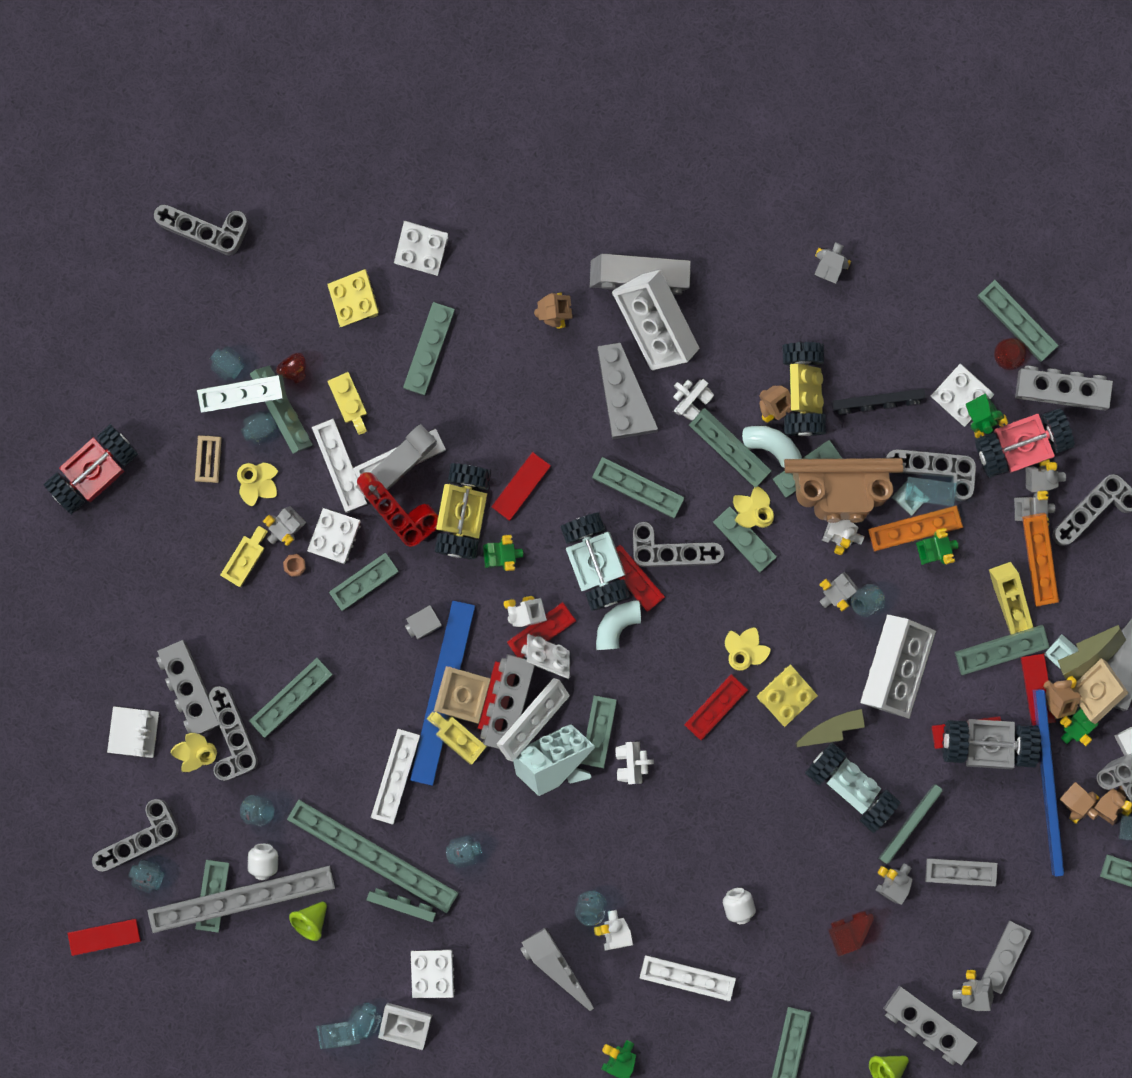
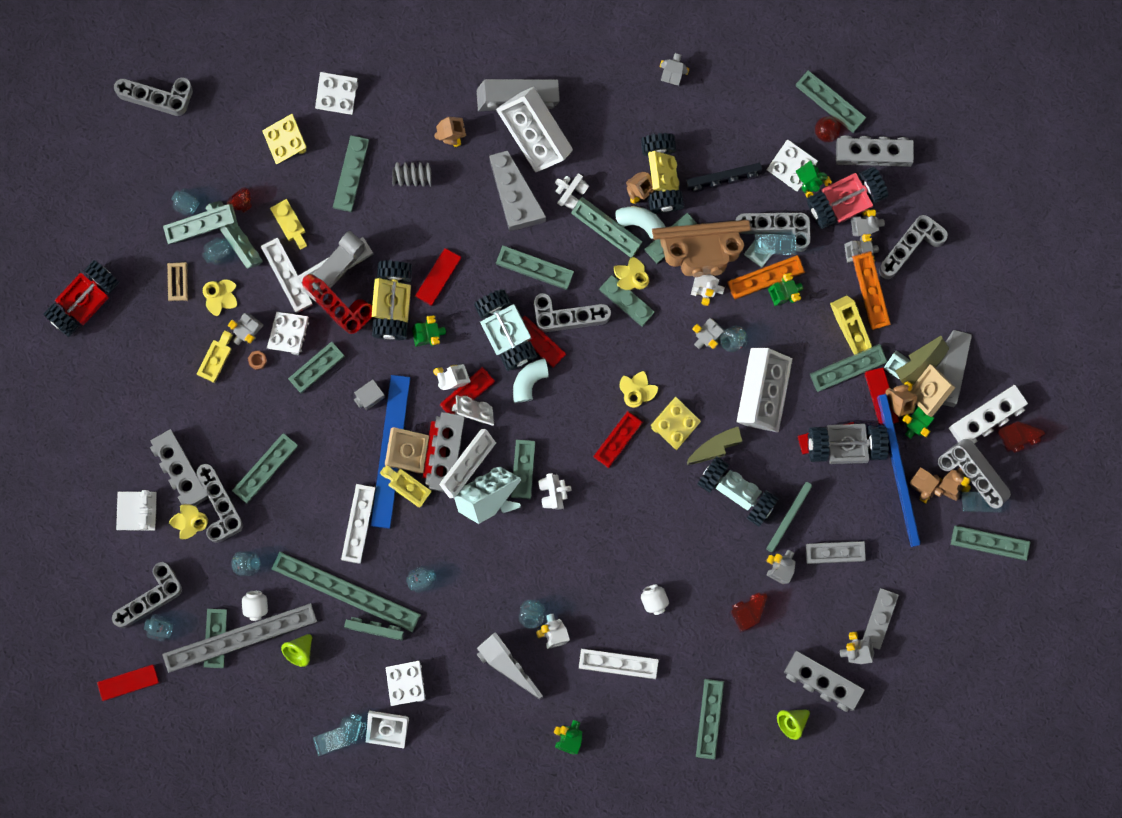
camera: 10 degrees left, 5 degrees down
(502, 358) = (411, 174): none -> light grey piece

